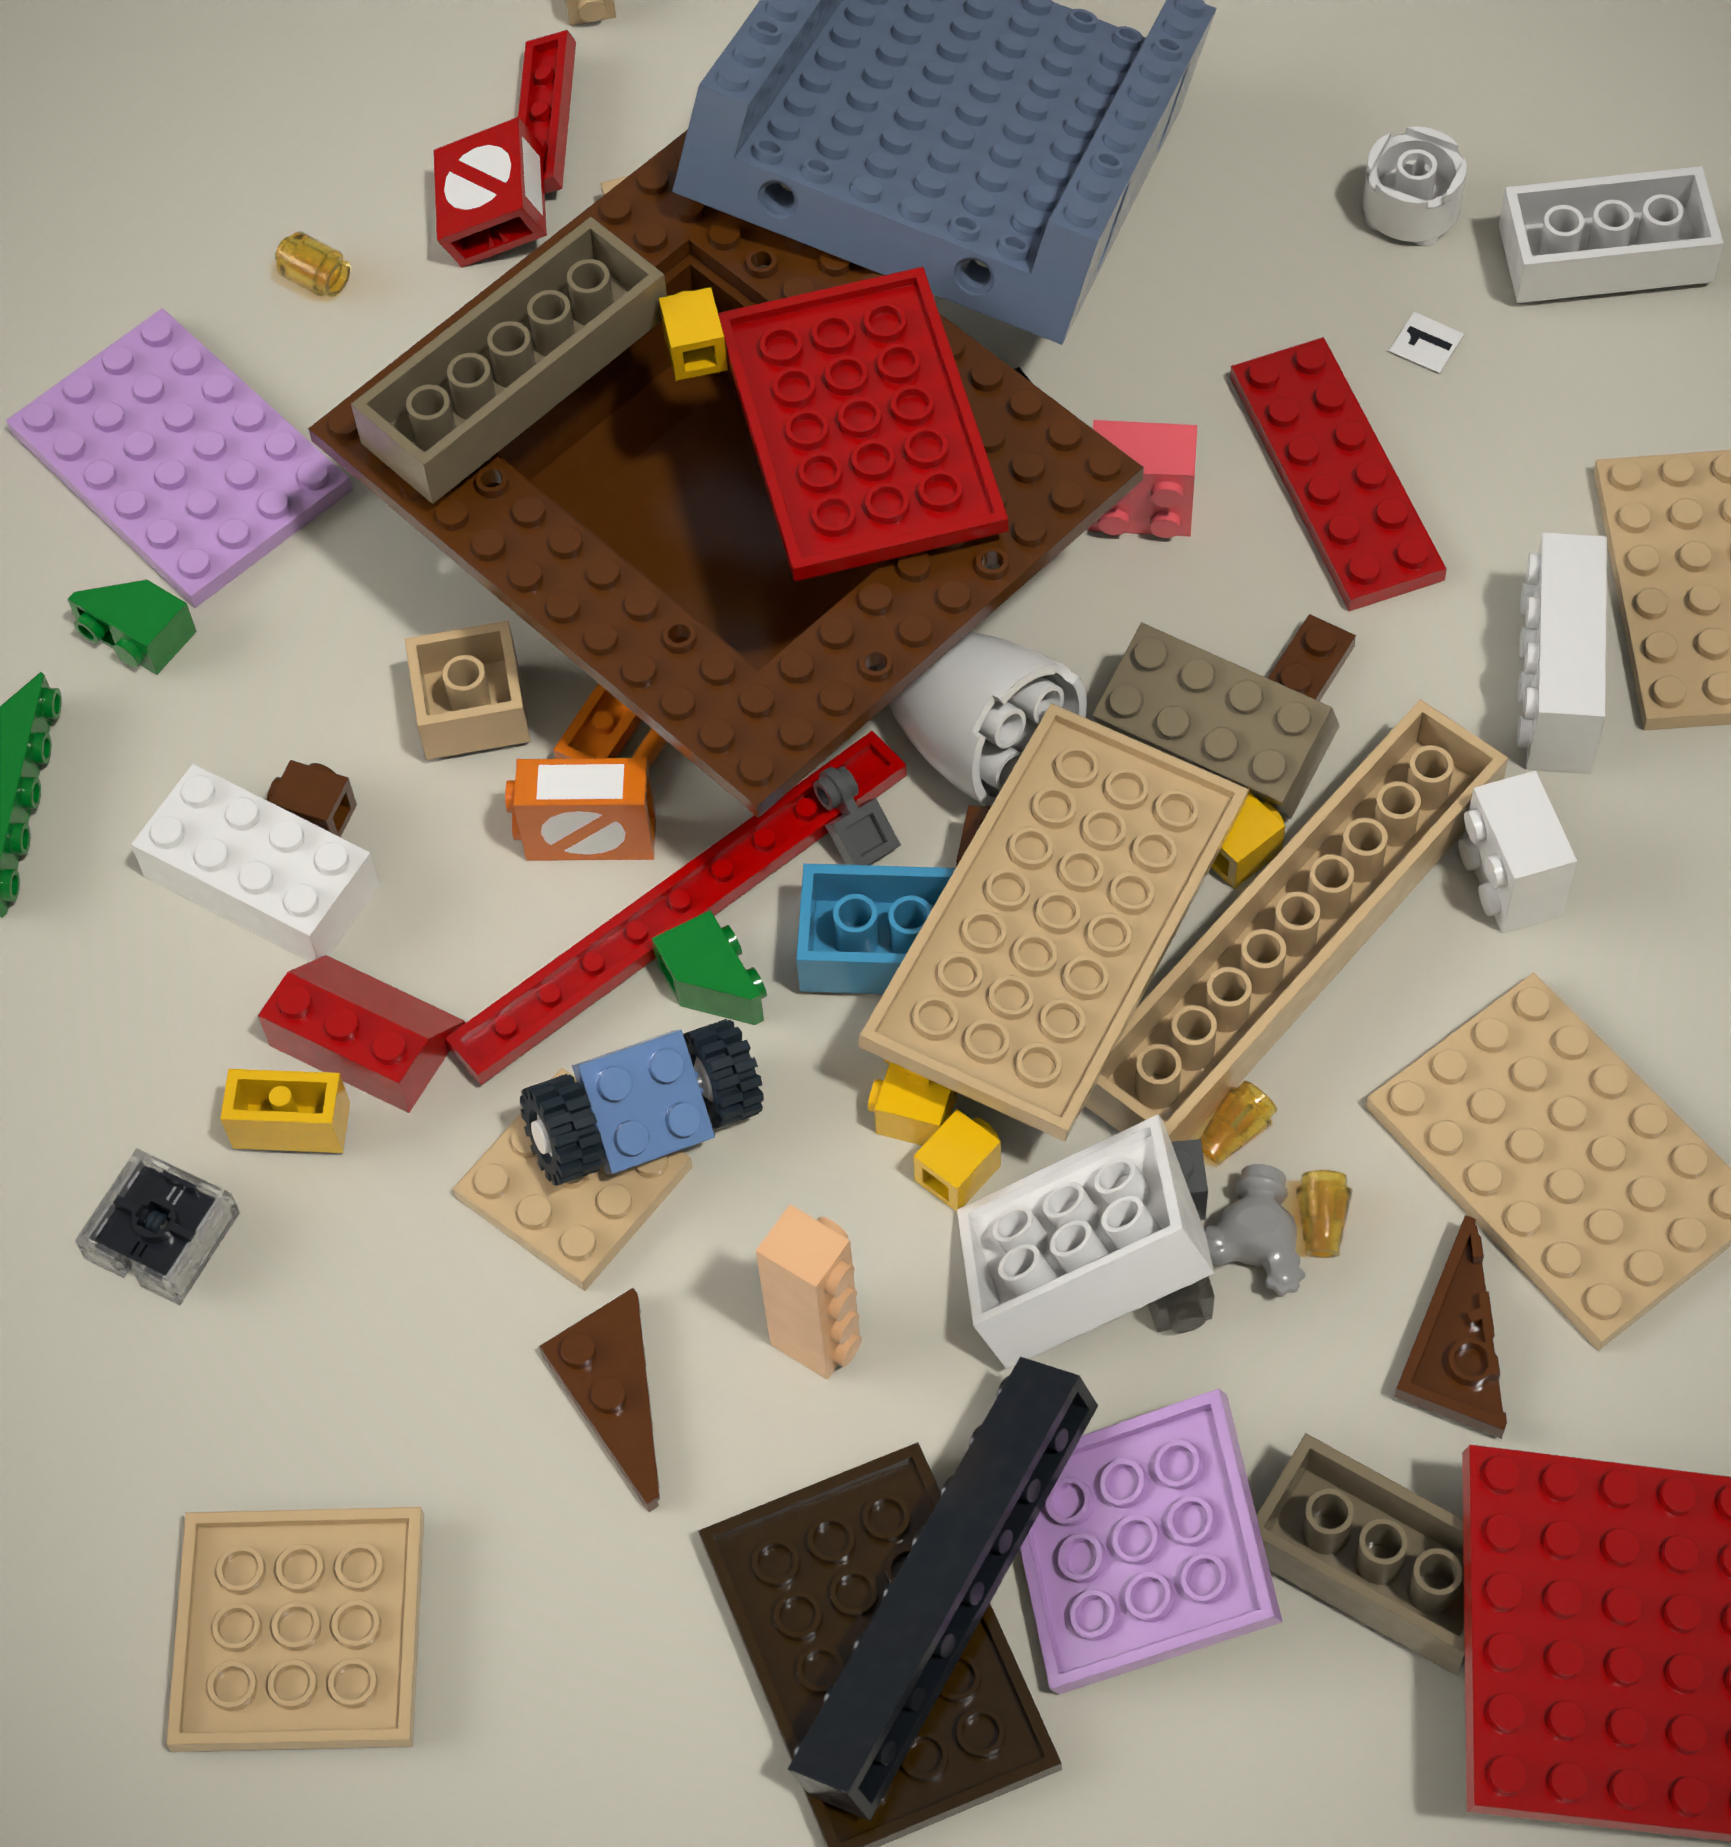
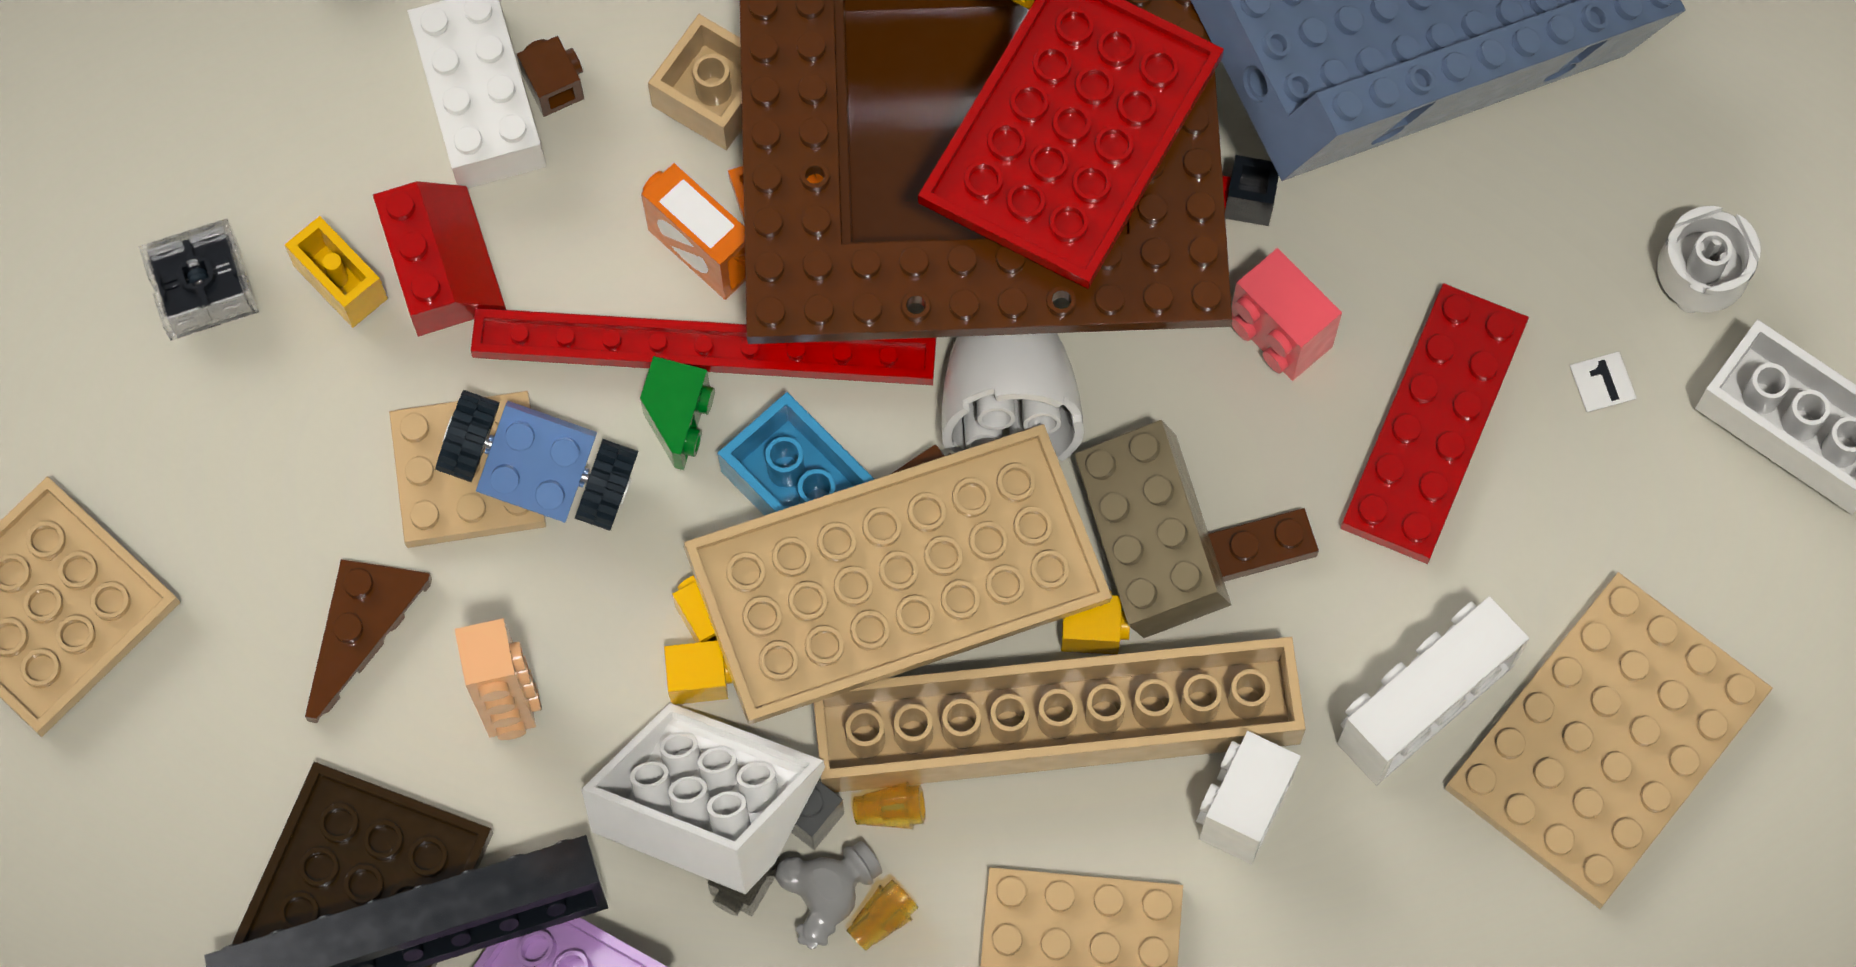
camera: 40 degrees right, 10 degrees up
(862, 830) = (859, 398): dark grey plate -> none

